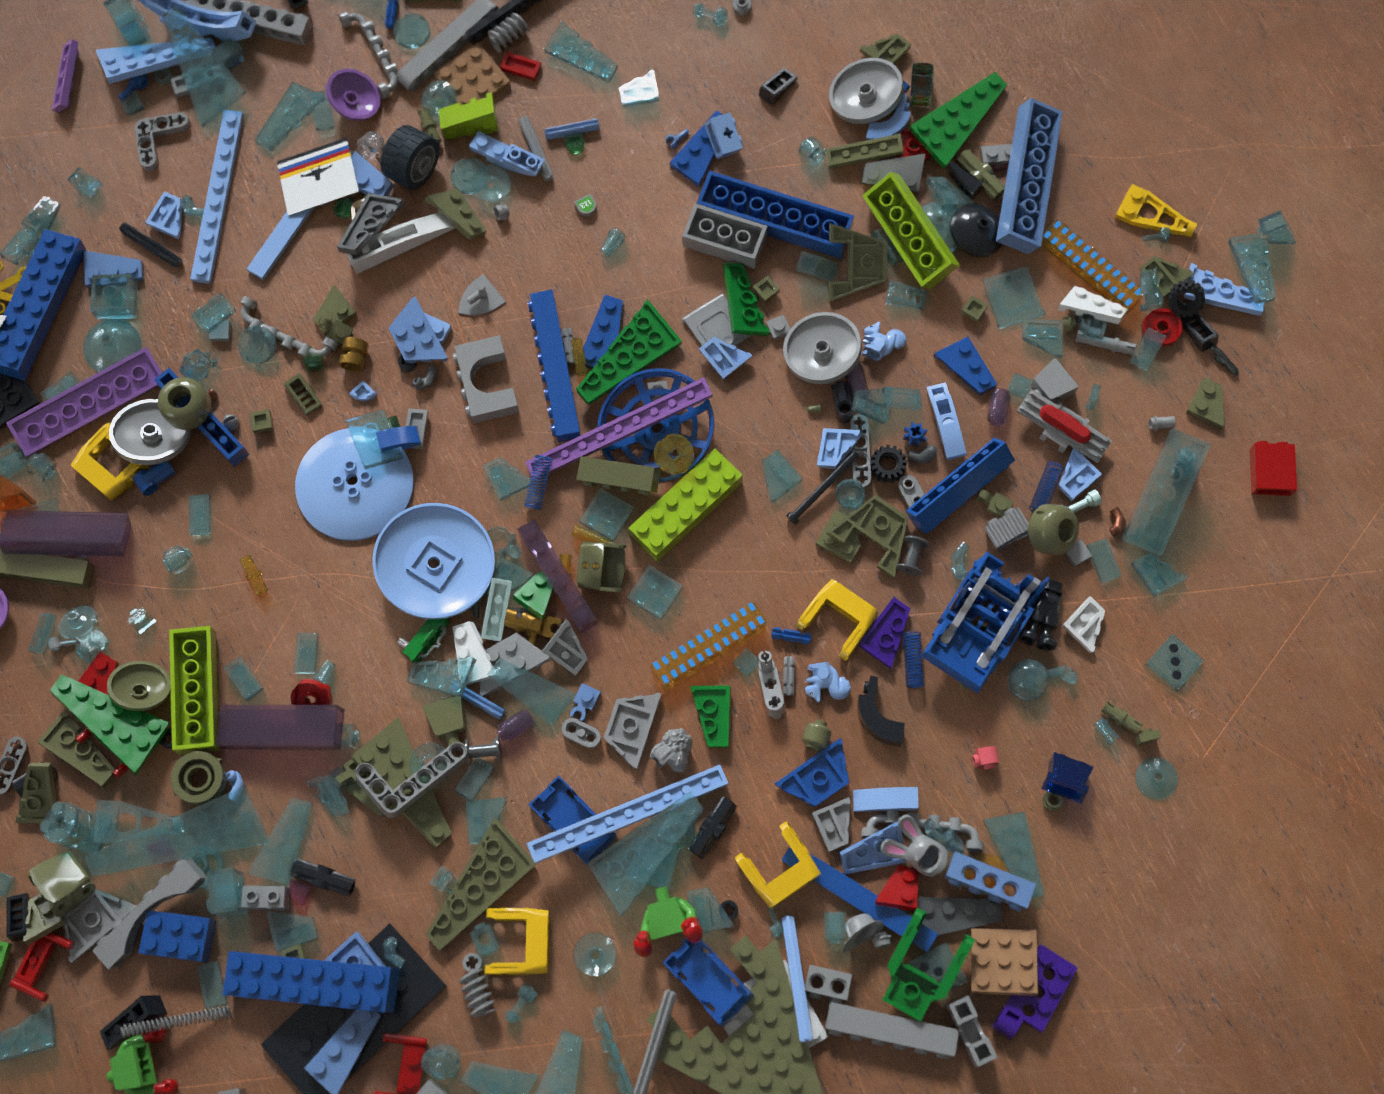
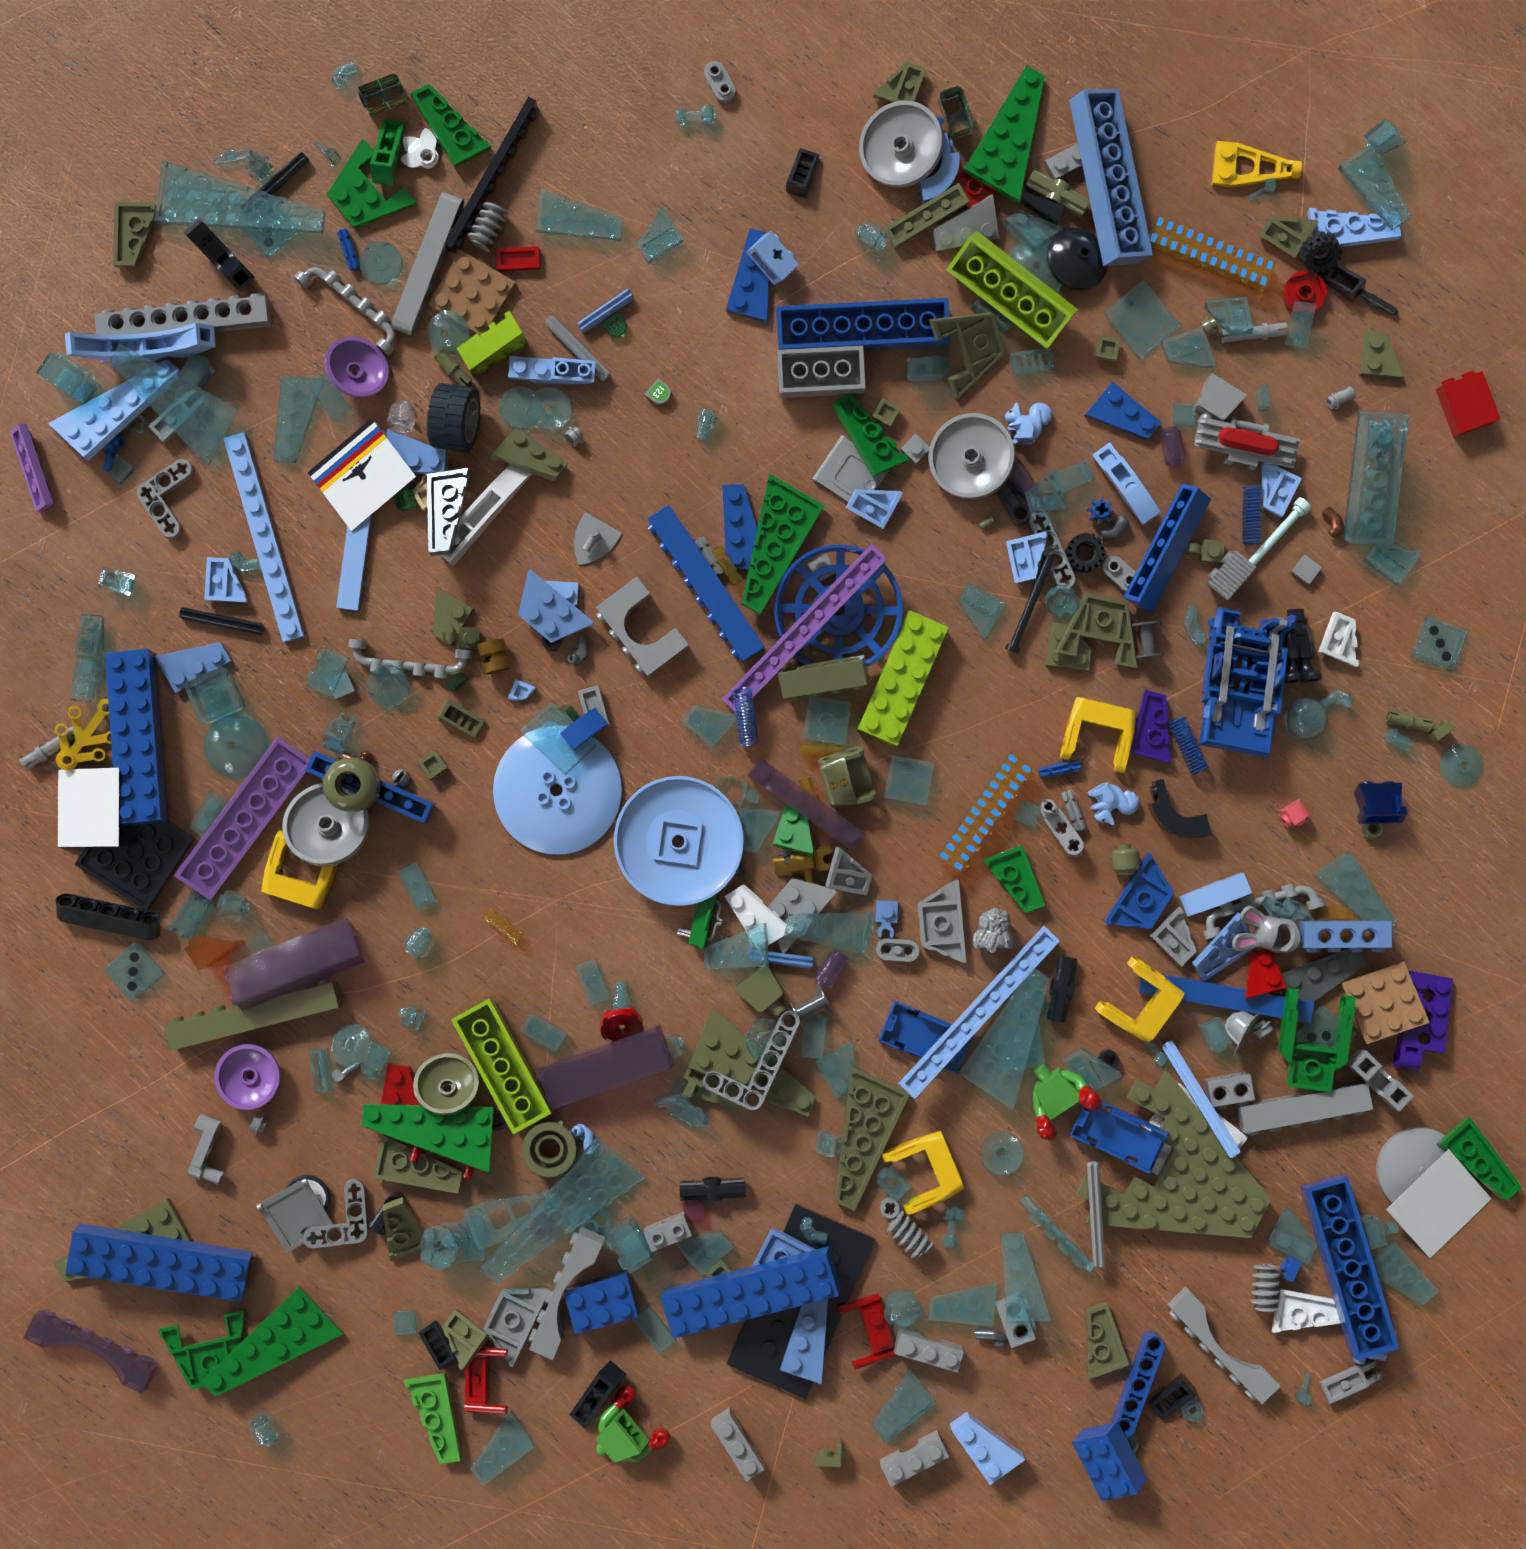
camera: 25 degrees left, 15 degrees up
(62, 882) = (468, 1300): olive piece -> none
(149, 480) = (349, 871): blue piece -> none
(175, 1020) = (640, 1377): light grey piece -> none
(282, 845) = (660, 1182): clear light blue wing -> none
(496, 609) = (761, 863): light aqua plate -> none
(676, 138) = (721, 276): medium blue hand -> none
(681, 462) = (866, 645): clear yellow plate -> none
(1053, 529) = (1278, 558): olive piece -> none
(1089, 303) = (1223, 297): white wing -> none
(1104, 560) = (1334, 567): clear light blue tile -> none
(1150, 288) = (1281, 258): clear light blue wing -> none

